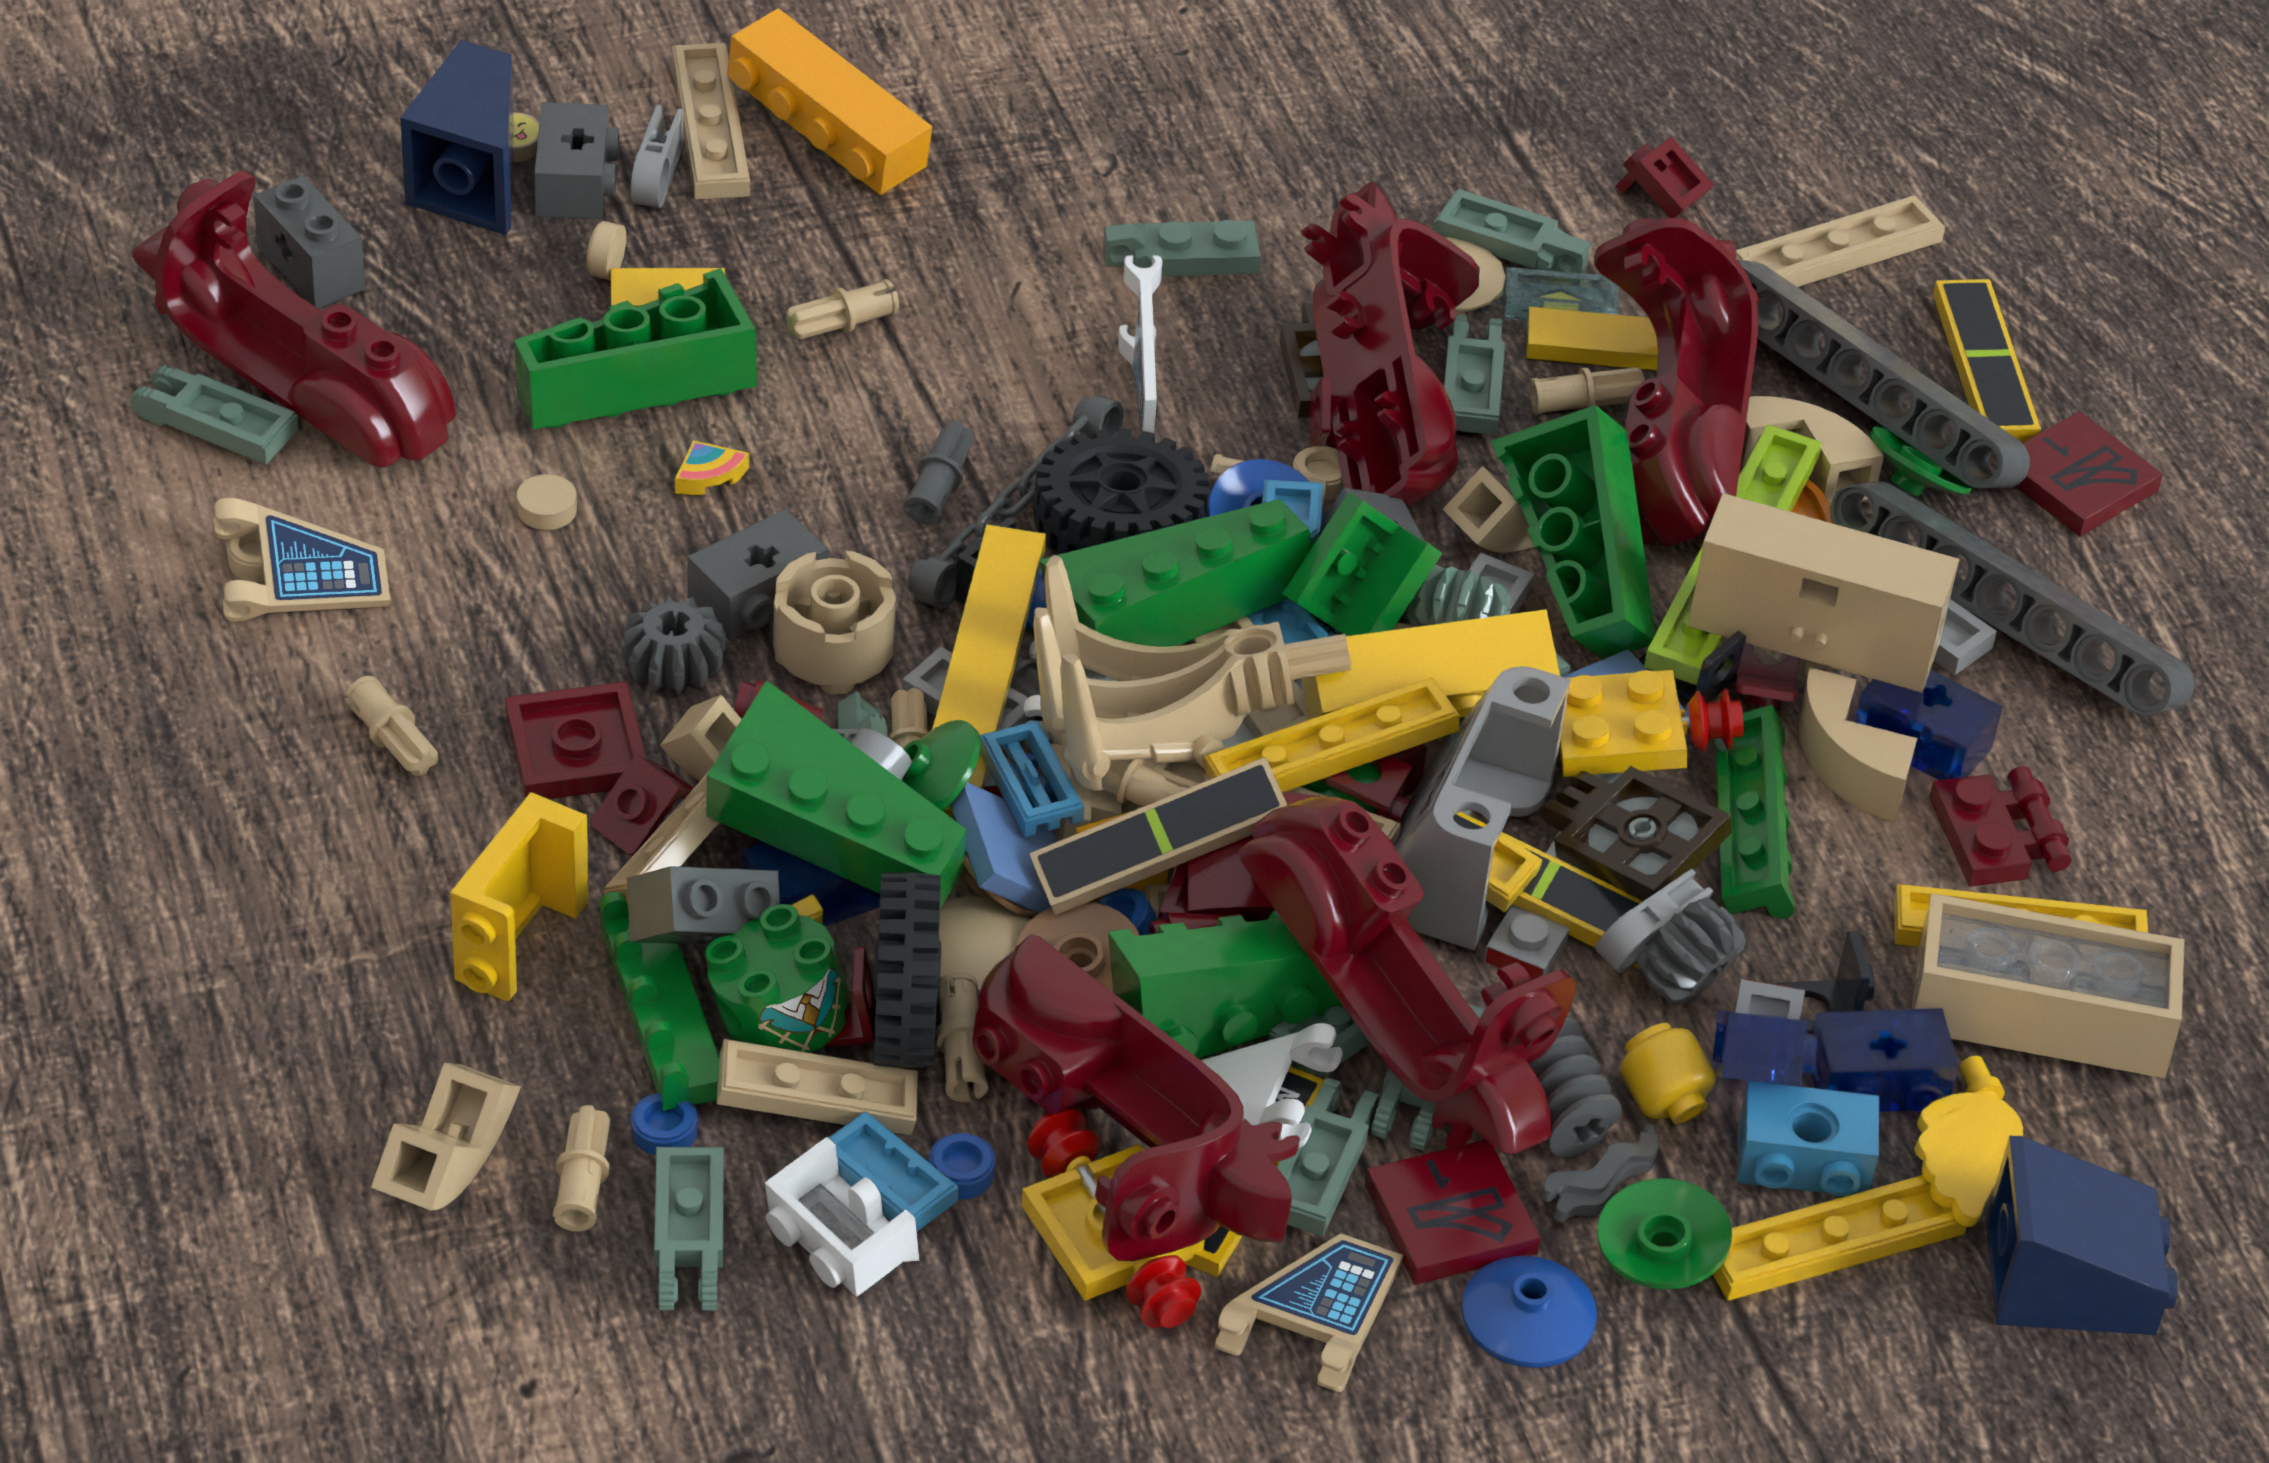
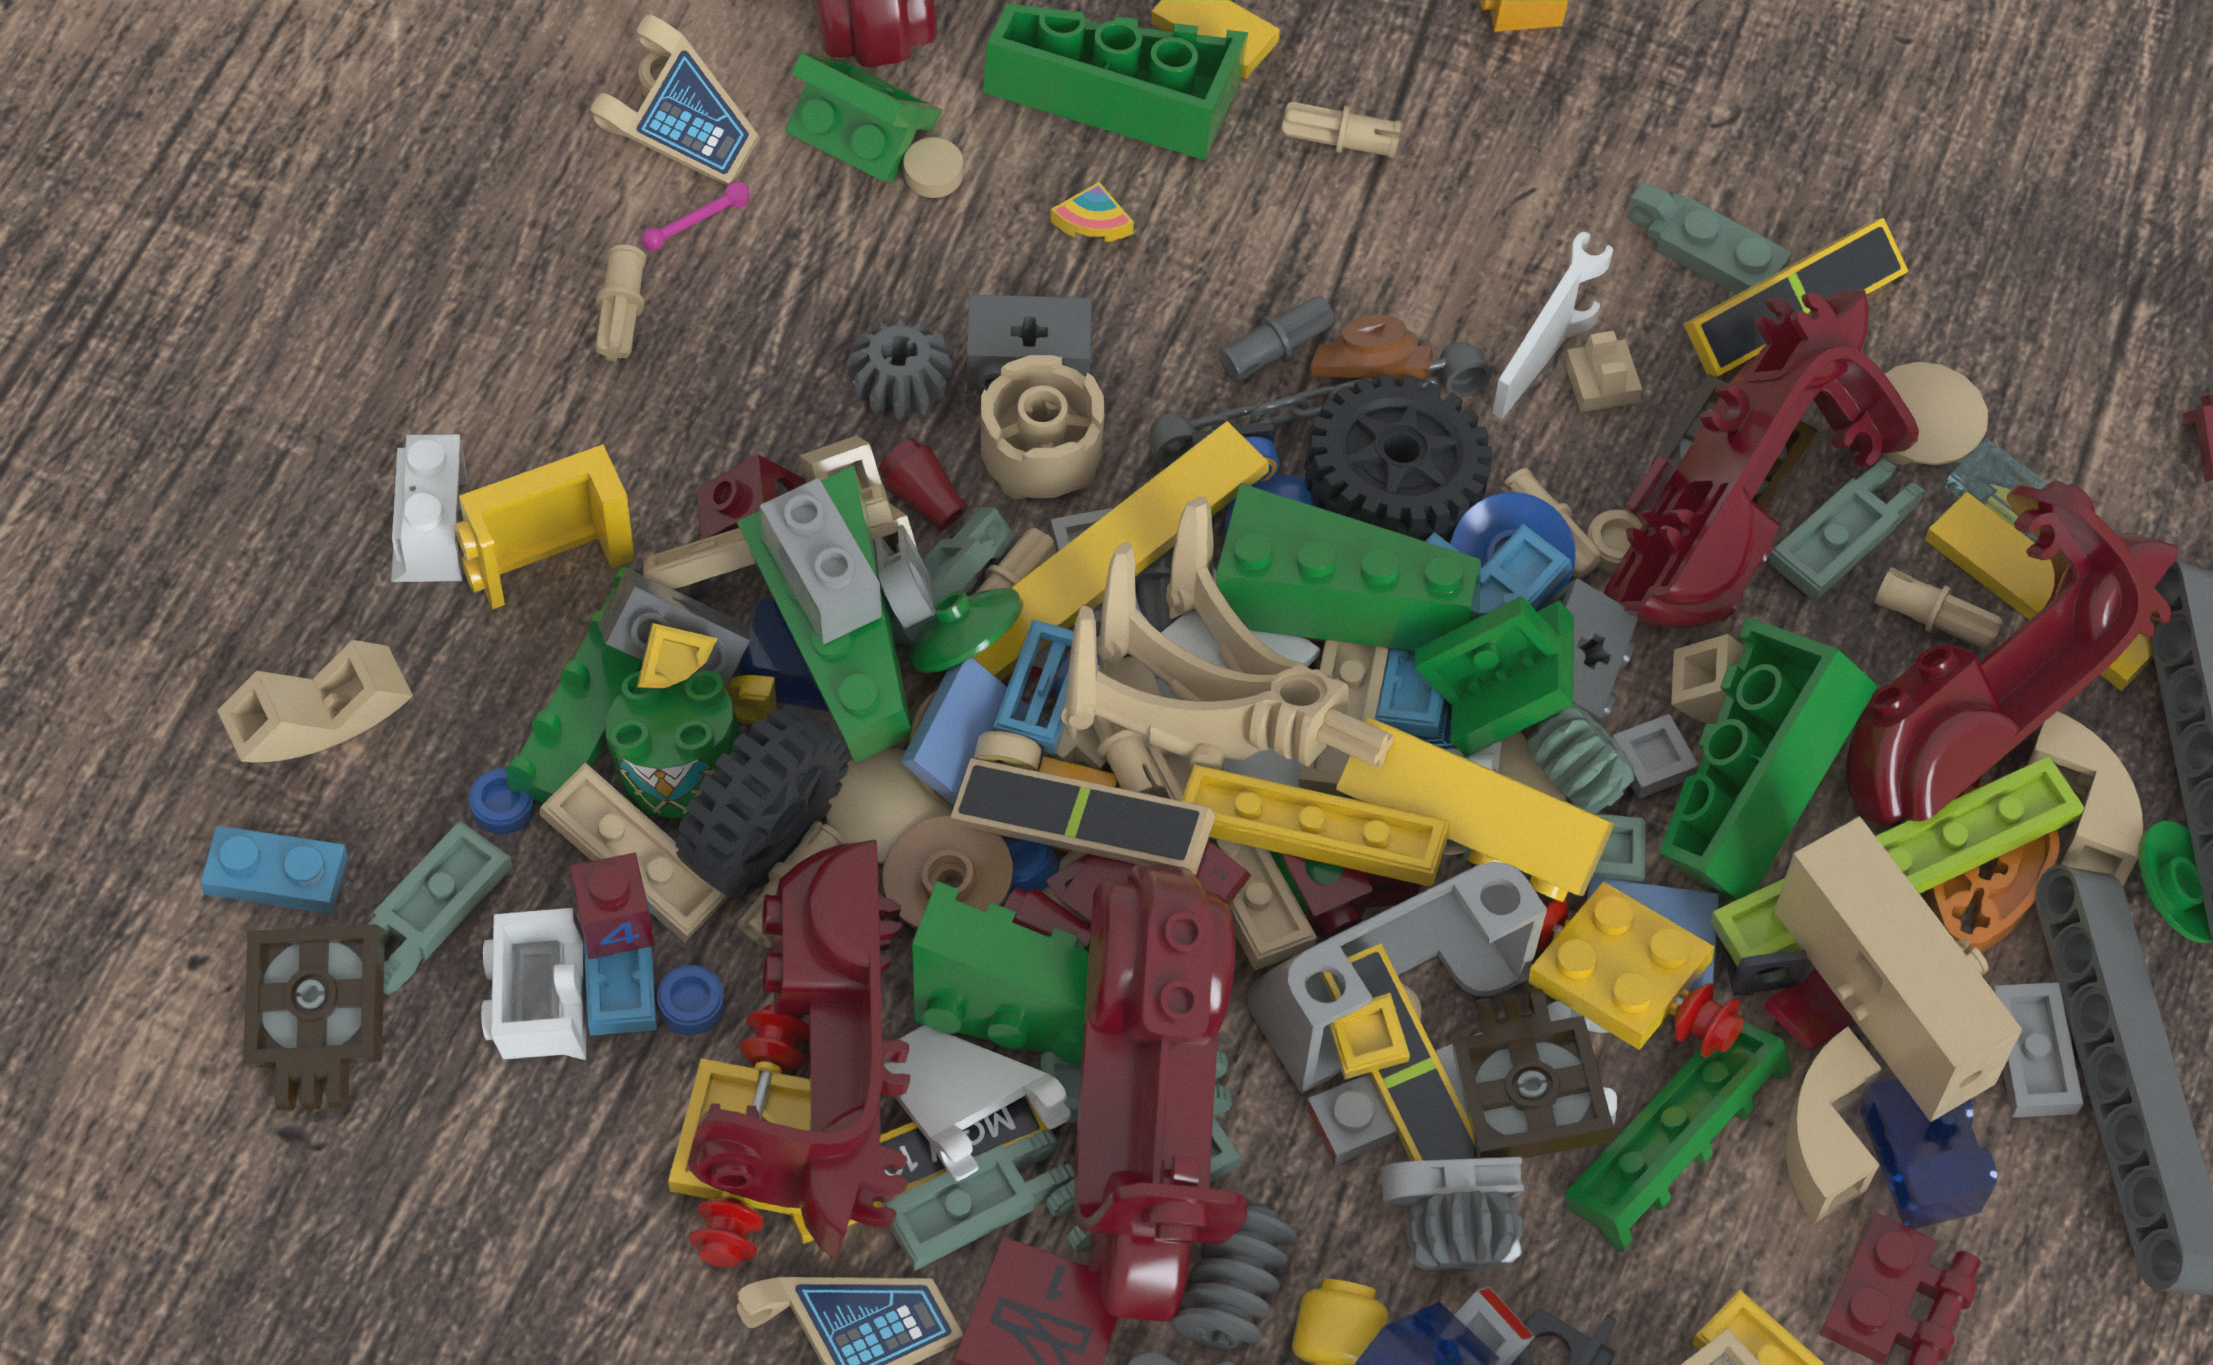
camera: 40 degrees right, 15 degrees up
(394, 951) = (427, 509): none -> white window
(401, 607) = (736, 196): none -> dark pink hinge
(456, 490) = (857, 115): none -> green bracket
(528, 1280) = (274, 869): none -> dark azure piece
(573, 739) = (752, 404): dark red tile -> none
(582, 1169) = (398, 799): tan axle -> none
(679, 1342) = (314, 1008): none -> dark brown piece
(739, 904) = (672, 656): none -> yellow tile
(822, 746) = (821, 561): none -> light grey brick
(860, 1113) = (612, 905): none -> dark red brick
(1023, 438) = (1371, 349): none -> dark orange piece
(1049, 829) = (1008, 750): none -> tan tile
(1199, 370) = (1603, 373): none -> tan tile
(1279, 258) = (1856, 261): none -> black tile
(1512, 233) = (2021, 406): sand green hinge -> none

